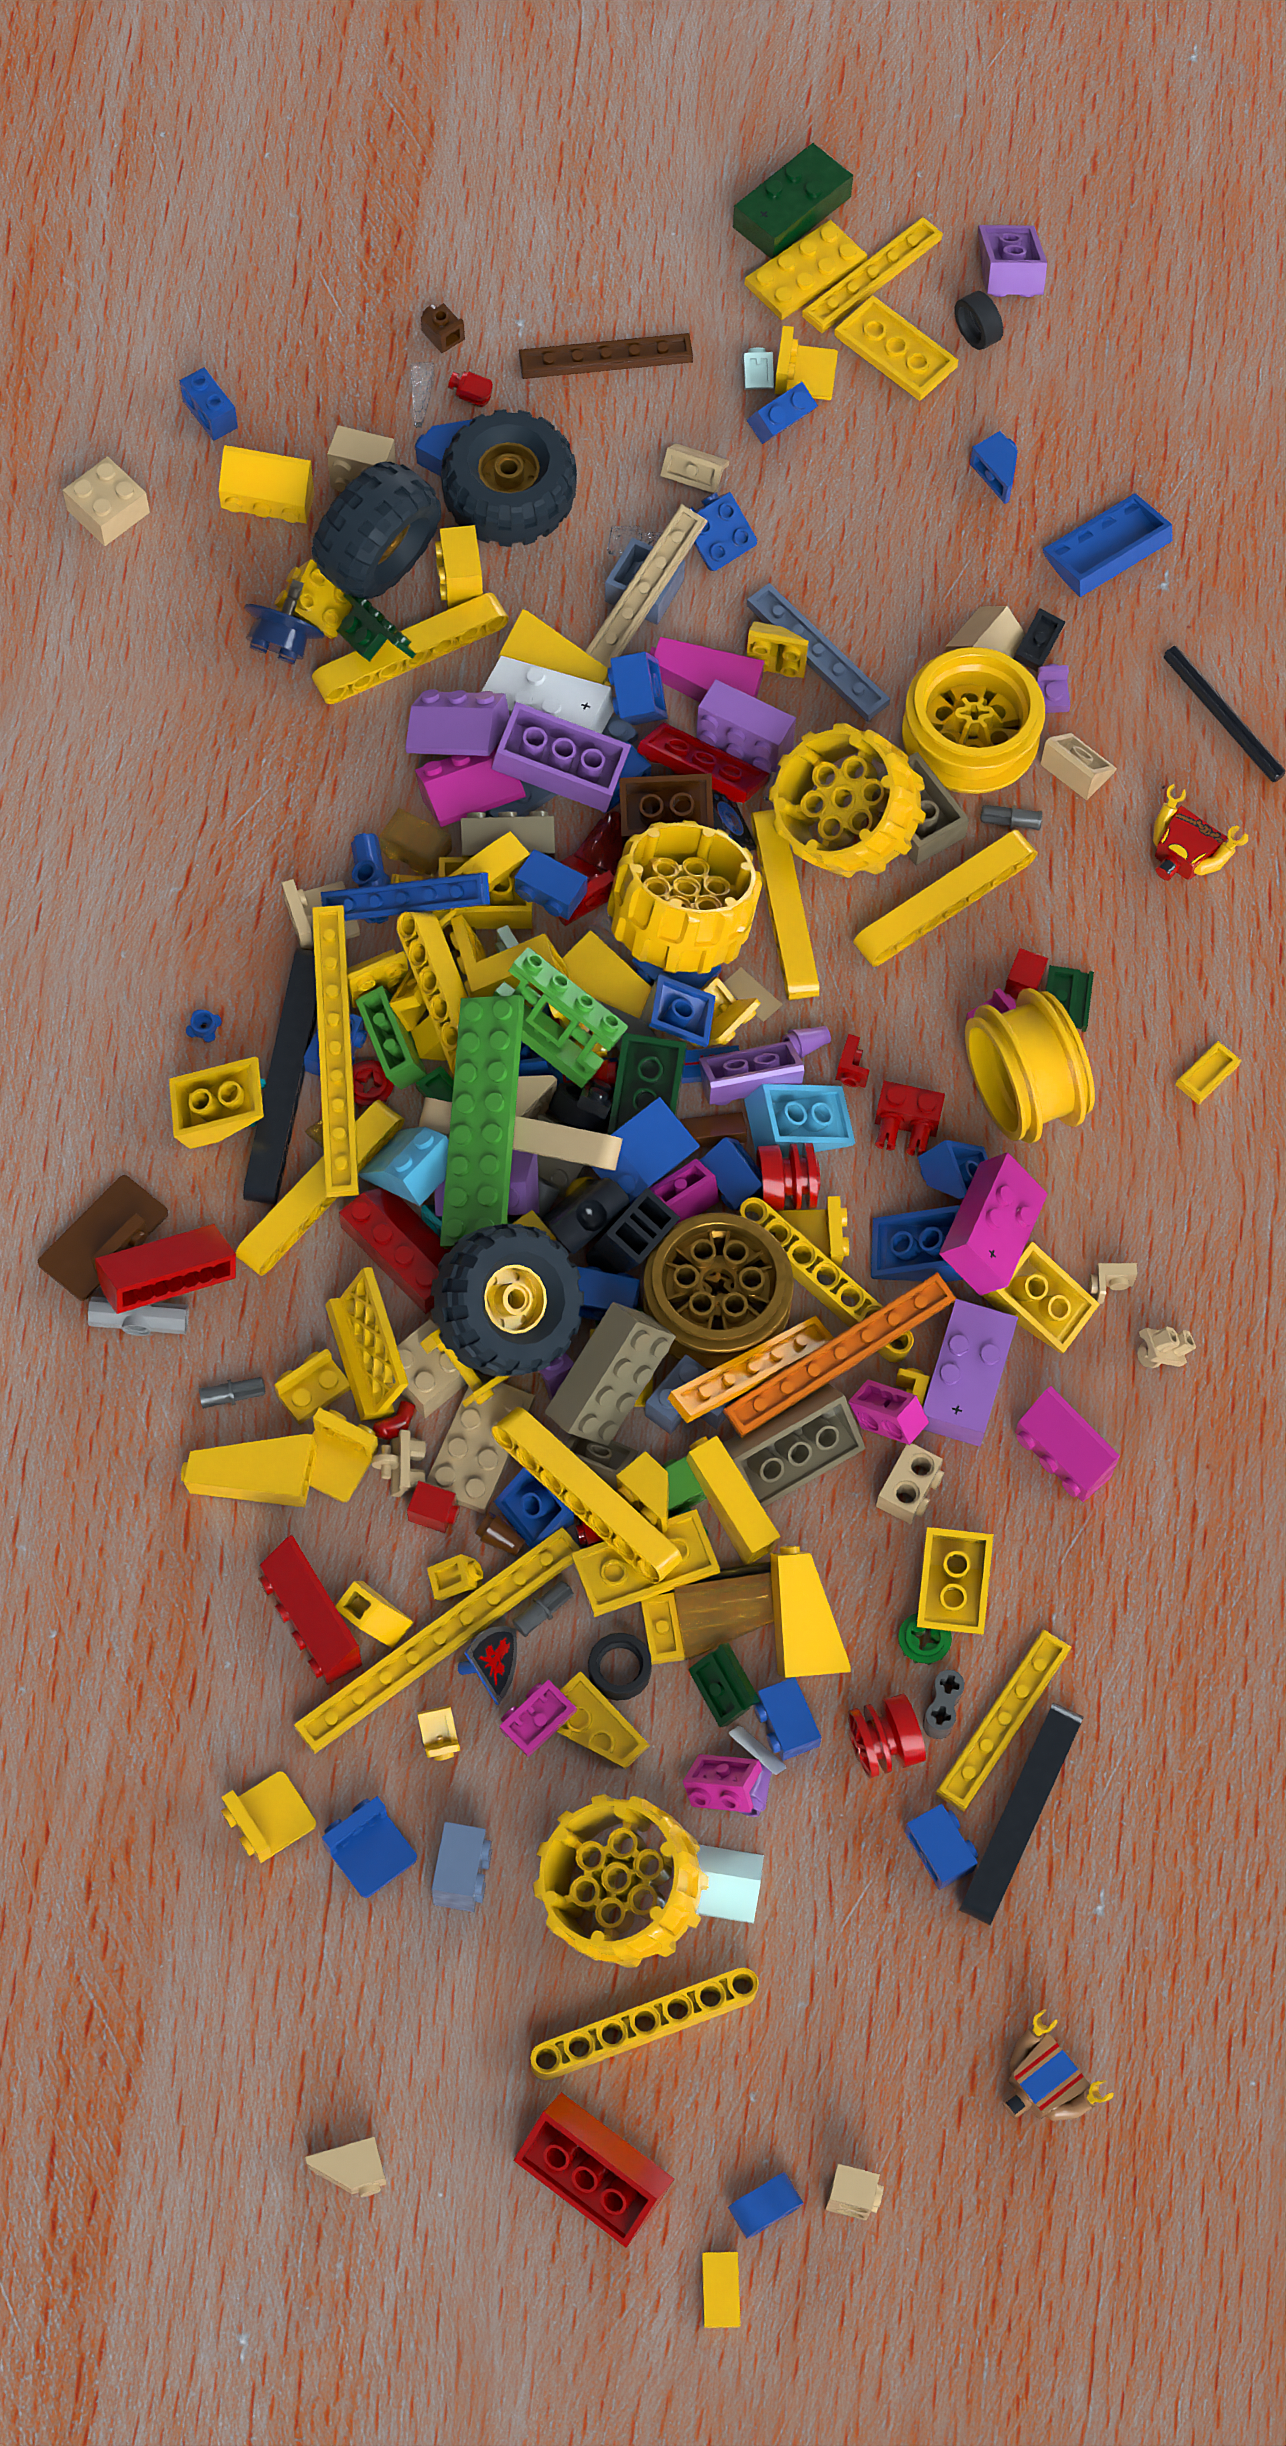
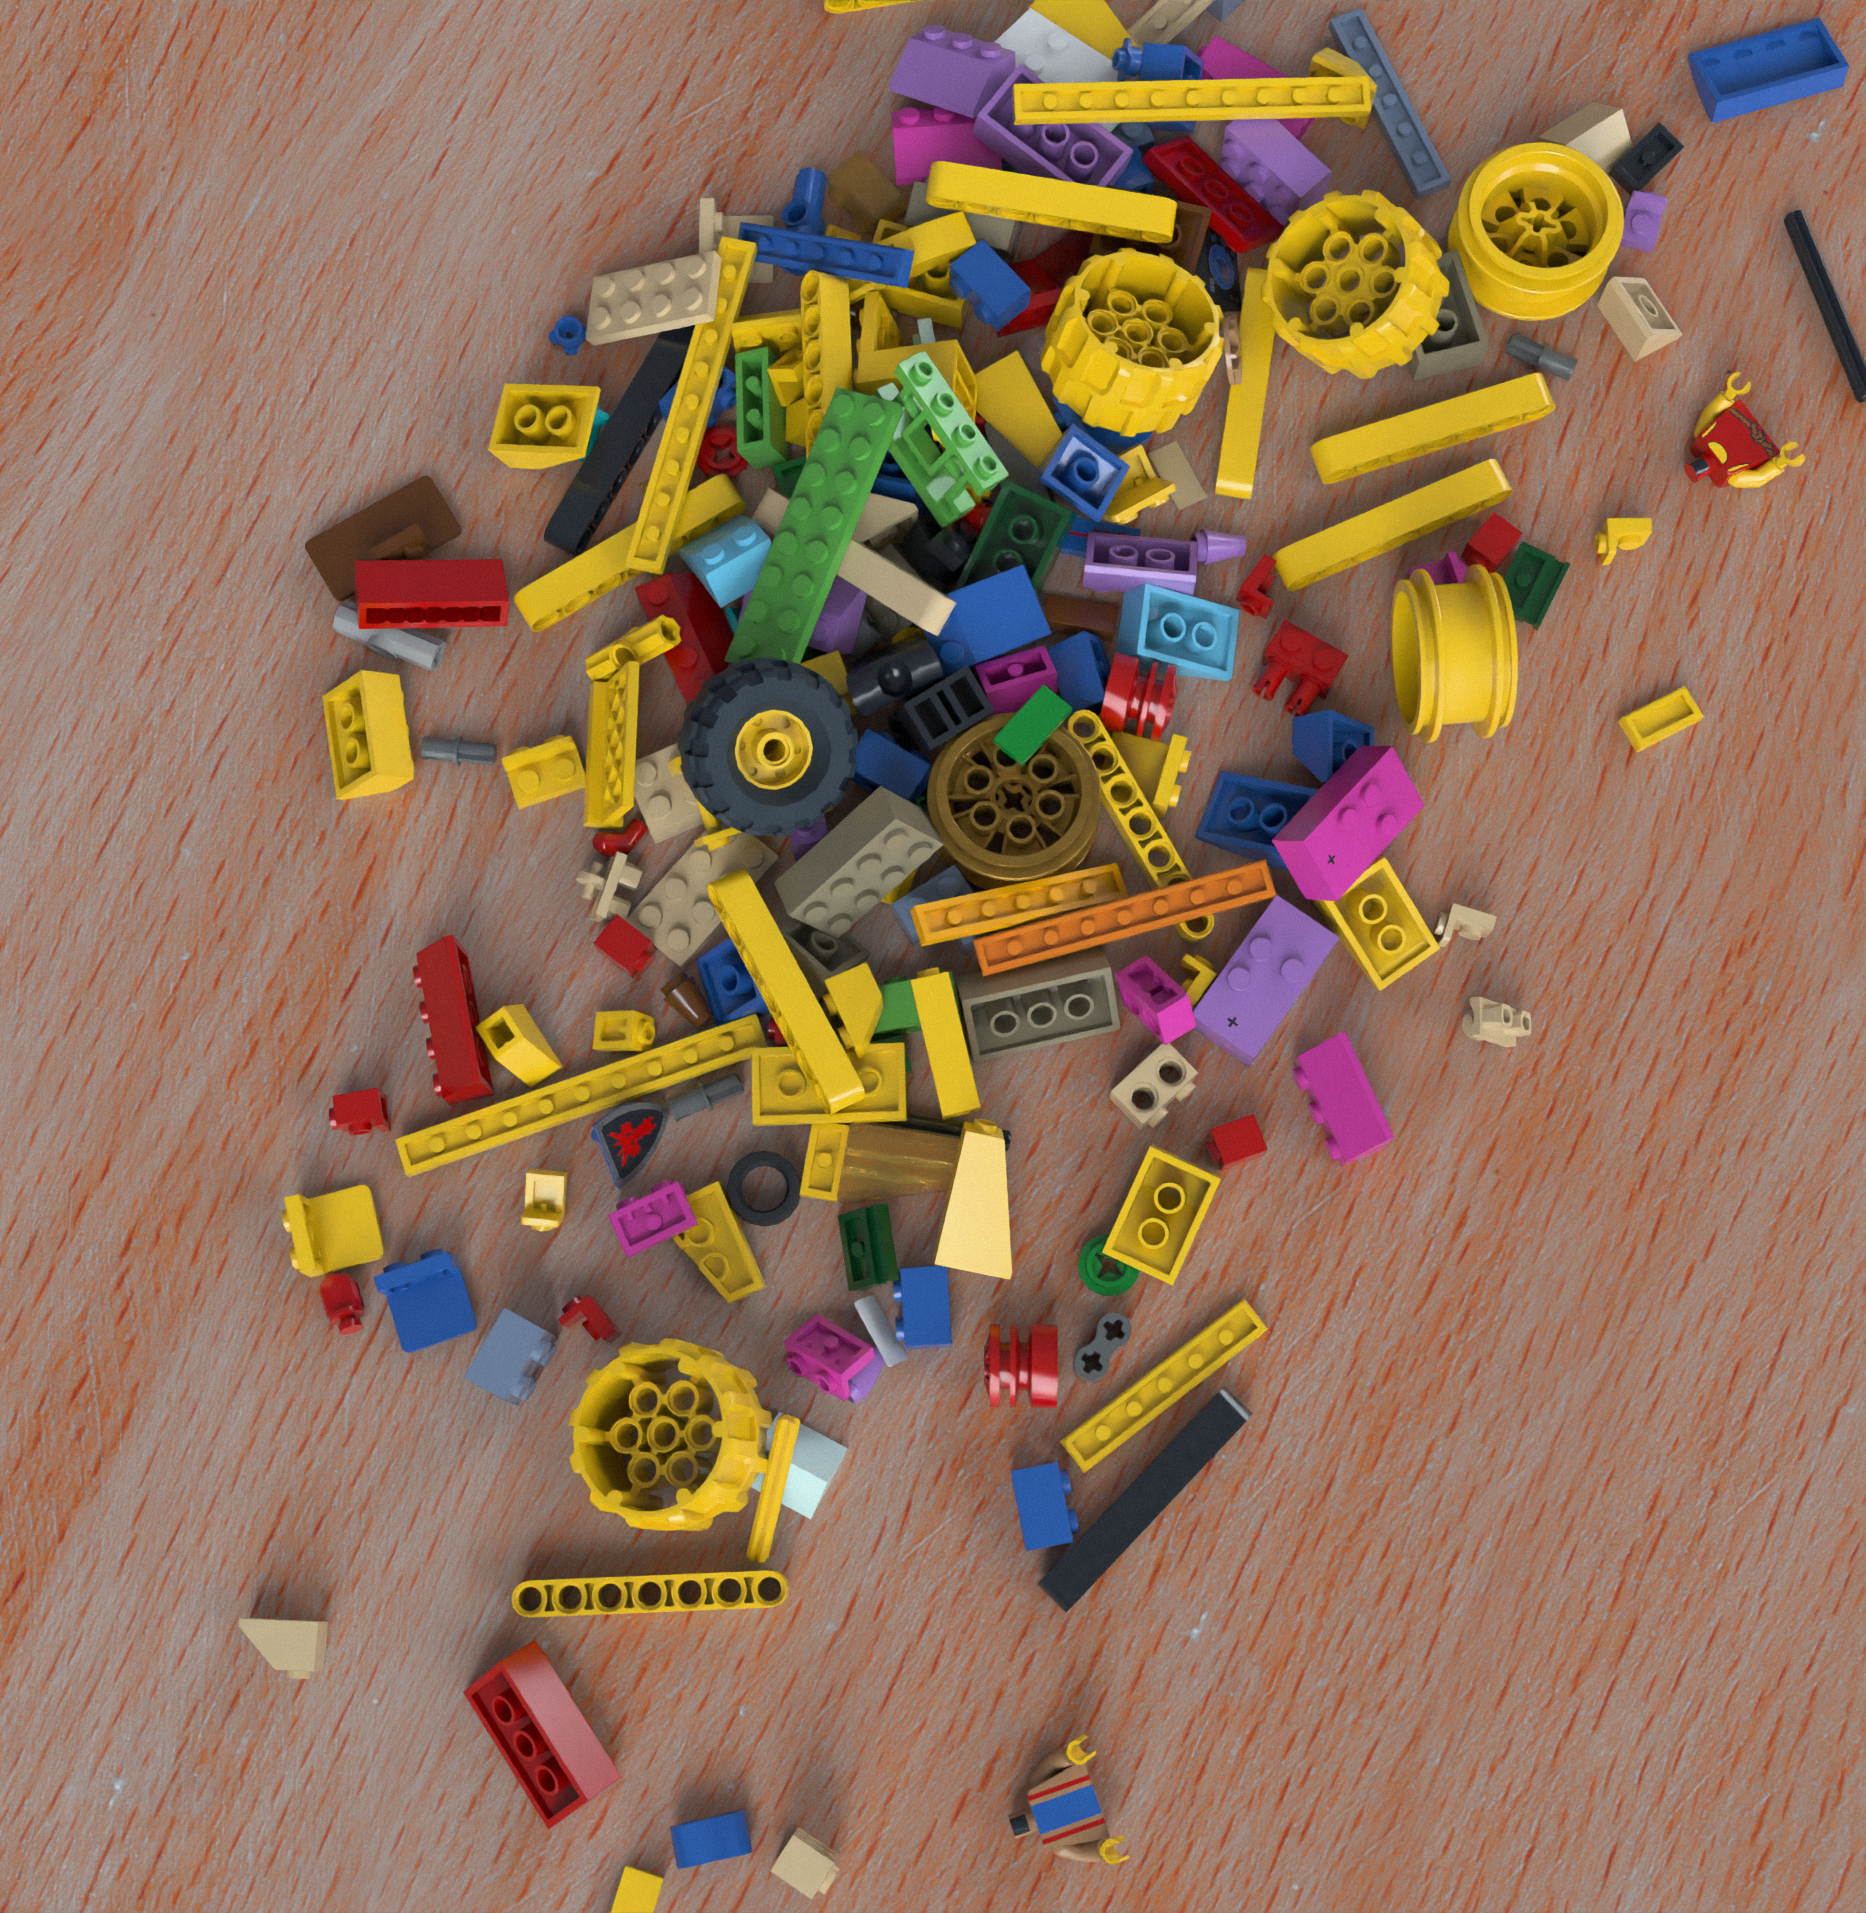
camera: 25 degrees right, 10 degrees up
(149, 1402) = (368, 735): none -> yellow slope
(254, 1471) = (452, 847): yellow slope -> none
(255, 1712) = (360, 1112): none -> red brick
(269, 974) = (653, 298): none -> tan plate
(296, 1873) = (342, 1302): none -> red arm
(341, 1454) = (542, 857): yellow bracket -> none
(366, 1252) = (636, 645): none -> yellow piece
(518, 1817) = (597, 1323): none -> red bracket
(580, 804) = (1051, 202): none -> yellow beam
(600, 675) = (1126, 60): none -> blue plate
(664, 693) = (1191, 100): none -> yellow plate
(716, 1219) = (1032, 725): none -> green tile
(717, 1901) = (773, 1488): none -> yellow axle
(767, 880) = (1232, 349): none -> medium nougat wheel
(940, 983) = (1392, 525): none -> yellow beam
(992, 1507) = (1235, 1143): none -> red brick
(1126, 935) = (1621, 532): none -> yellow bracket

